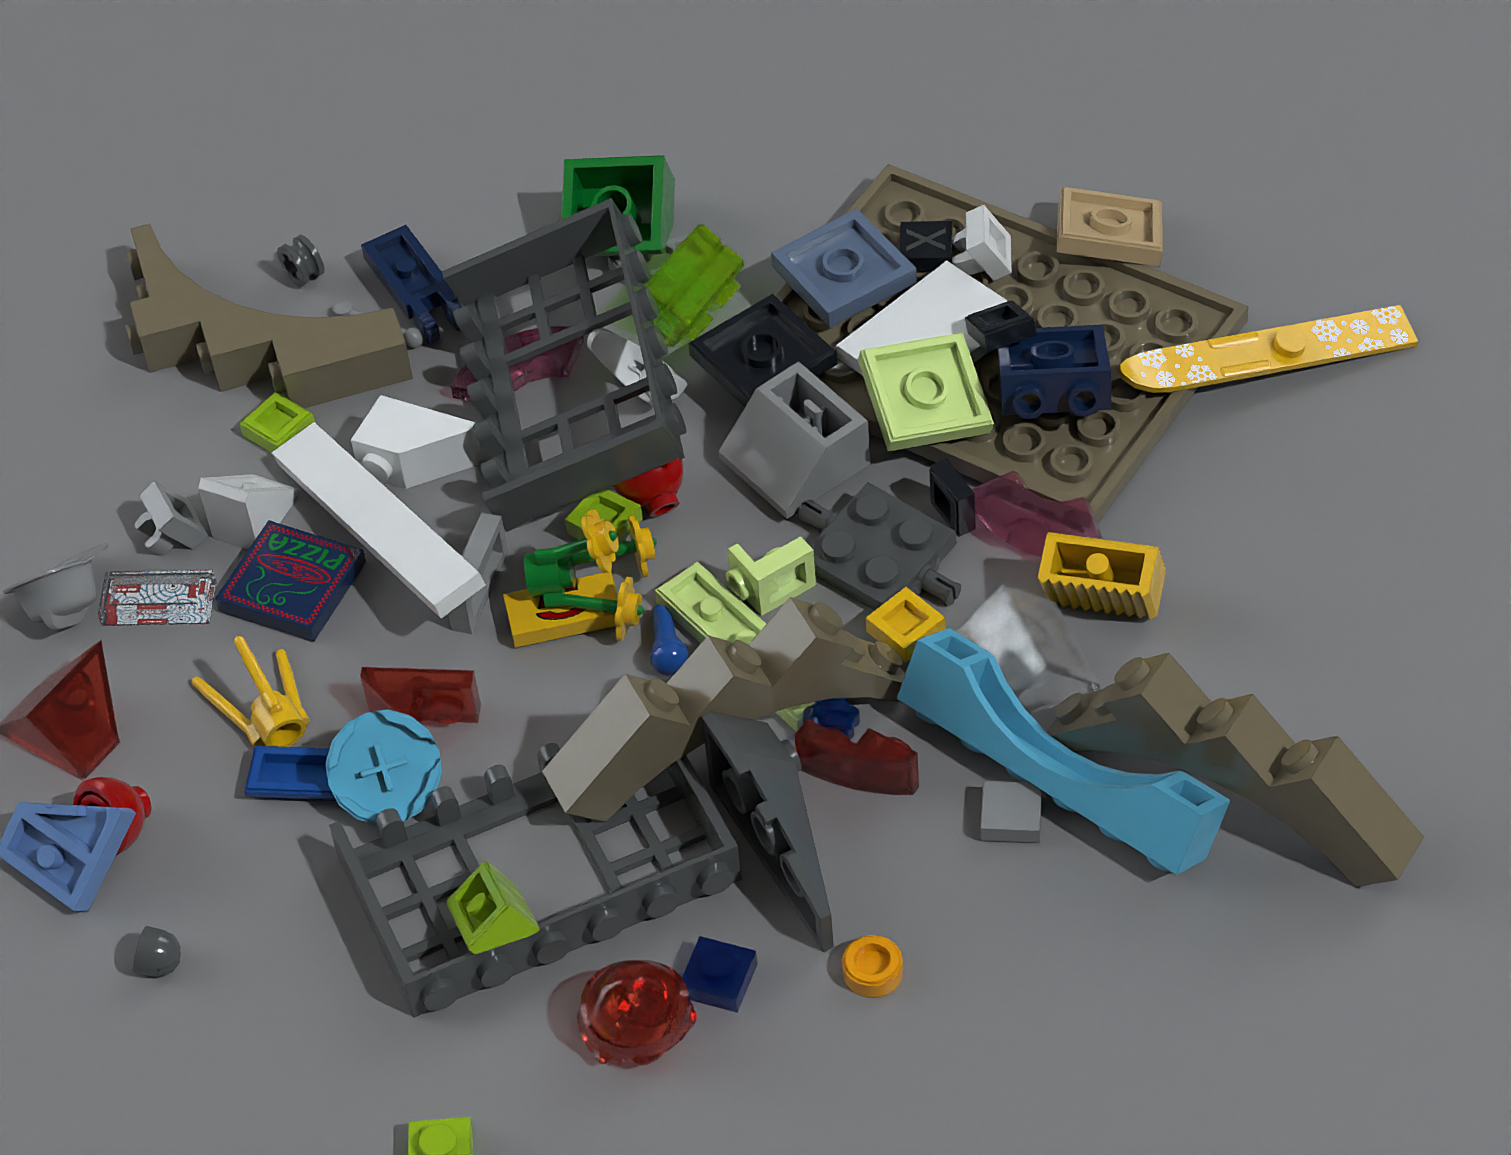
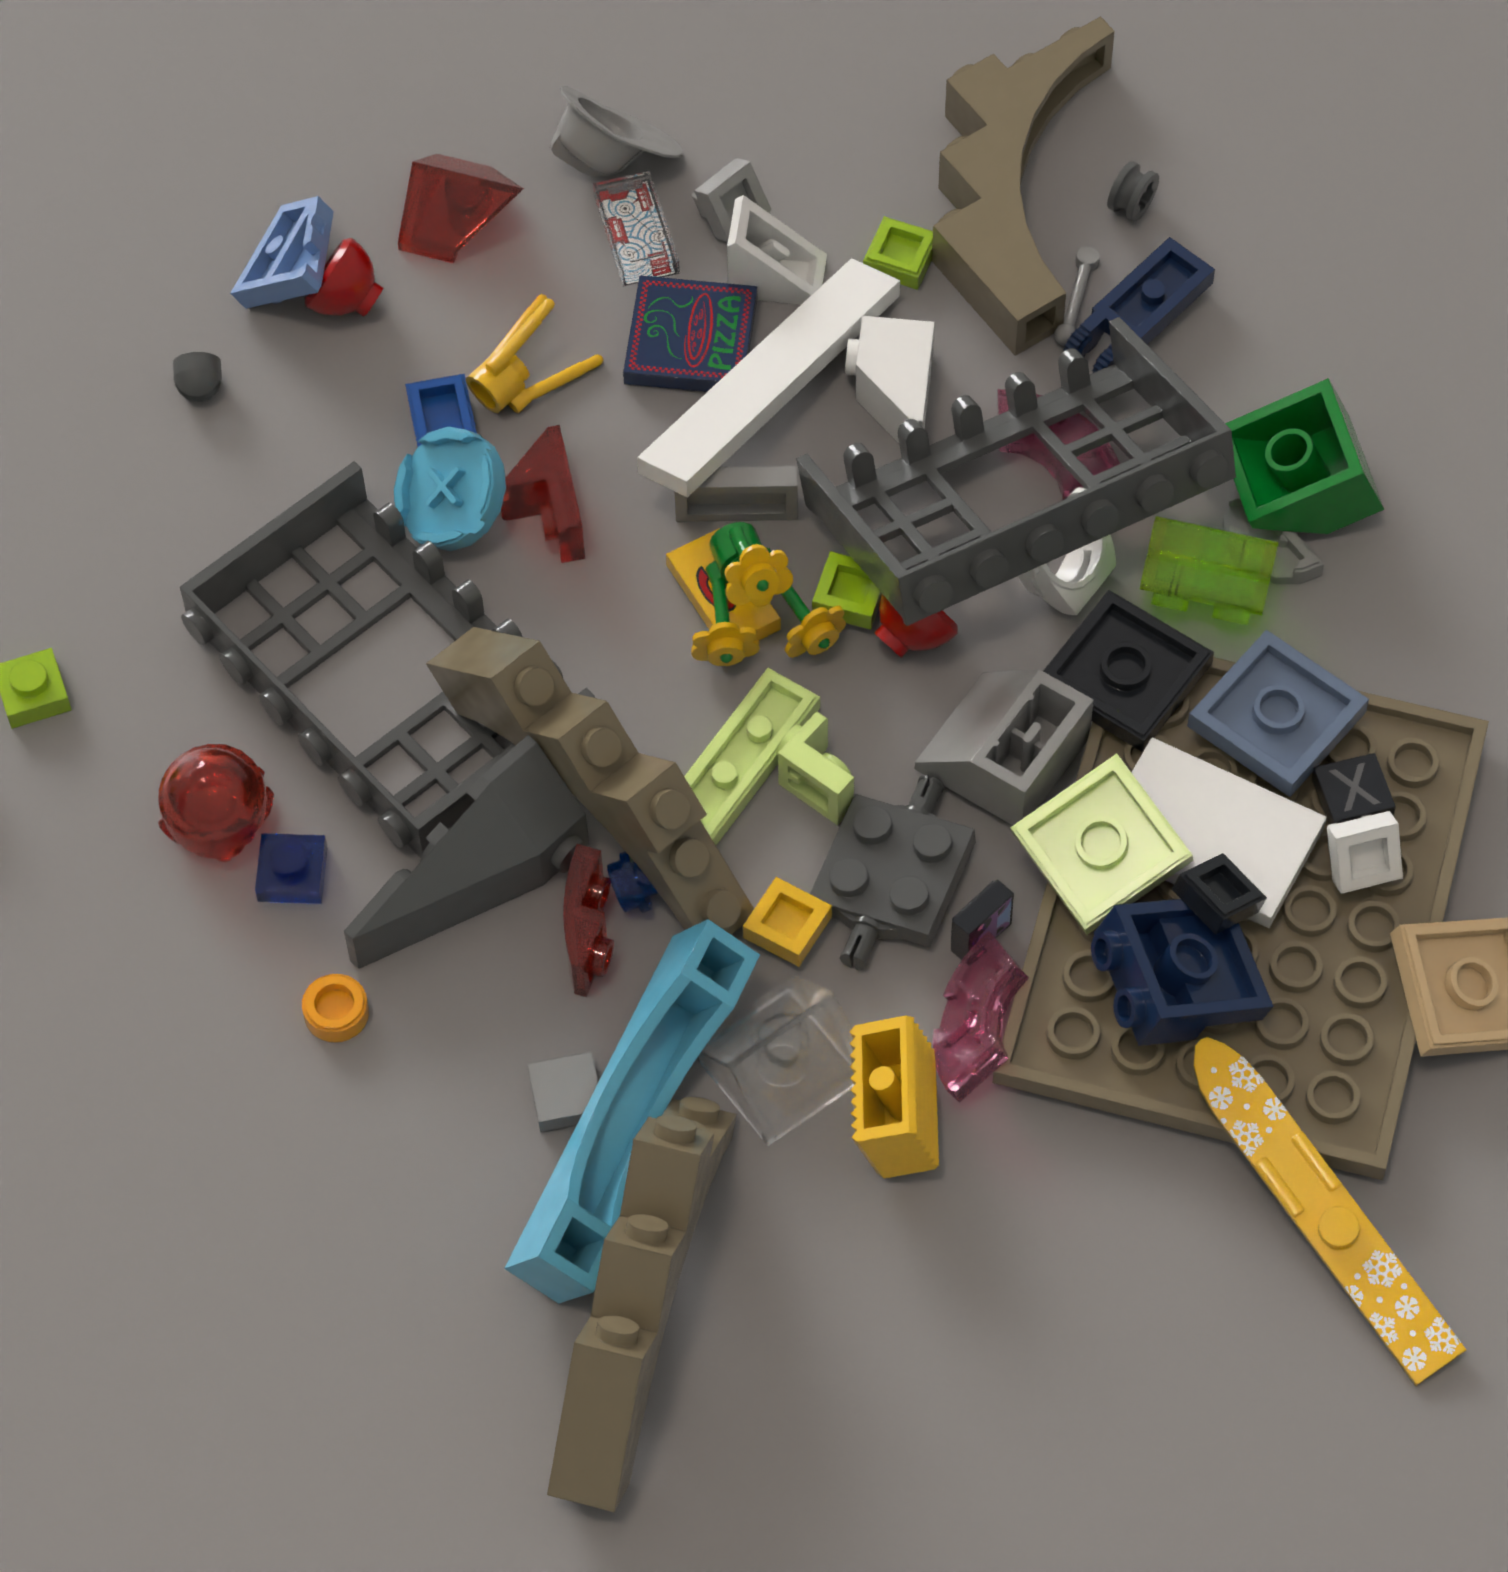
camera: 70 degrees right, 10 degrees up
(490, 910) = (292, 638): lime slope -> none
(668, 650) = (687, 705): blue piece -> none

